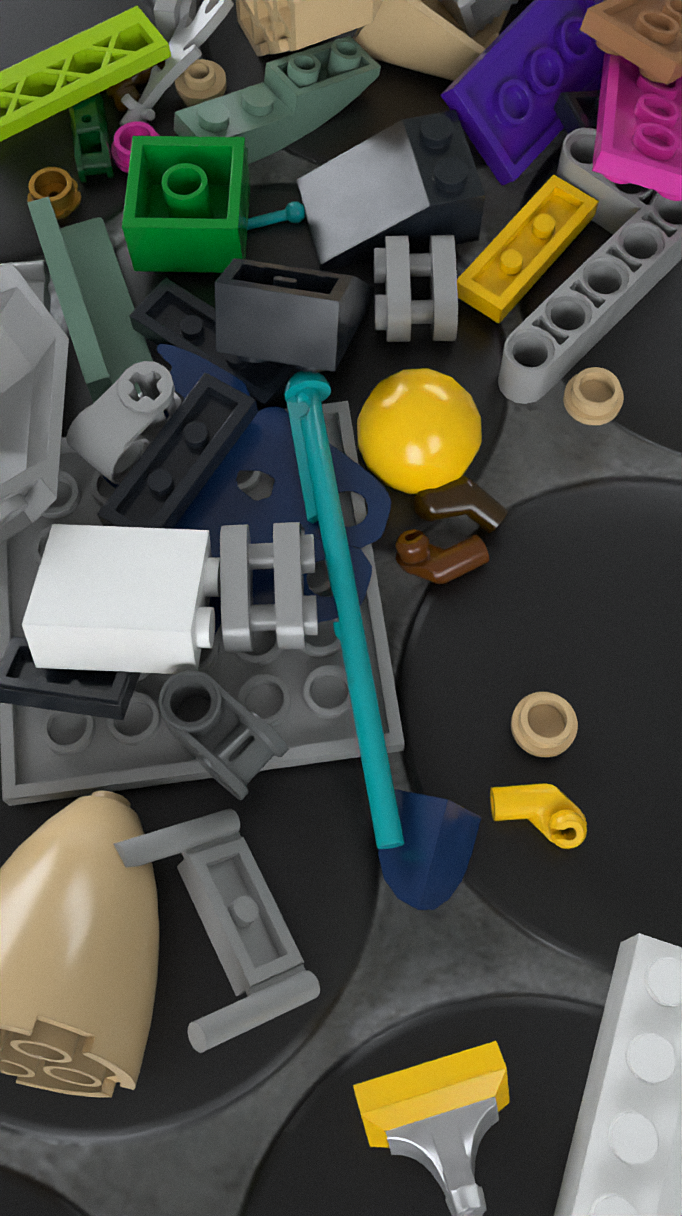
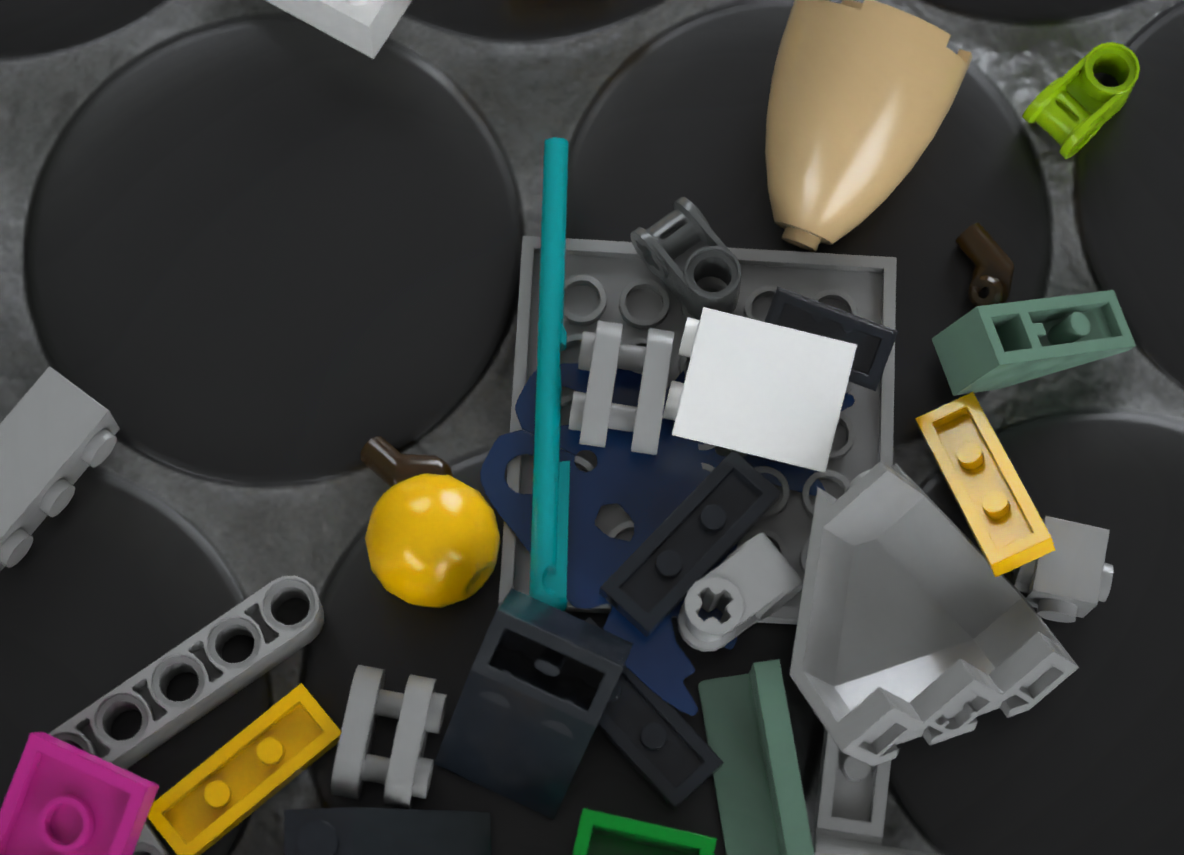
camera: 175 degrees left, 5 degrees up
(238, 919) = (697, 120): light grey plate -> none
(435, 851) = (517, 149): dark blue brick -> none
(437, 564) = (445, 416): reddish brown arm -> none
(544, 724) = (386, 240): tan plate -> none
(545, 808) = (407, 168): yellow arm -> none
(593, 396) = (229, 569): tan plate -> none

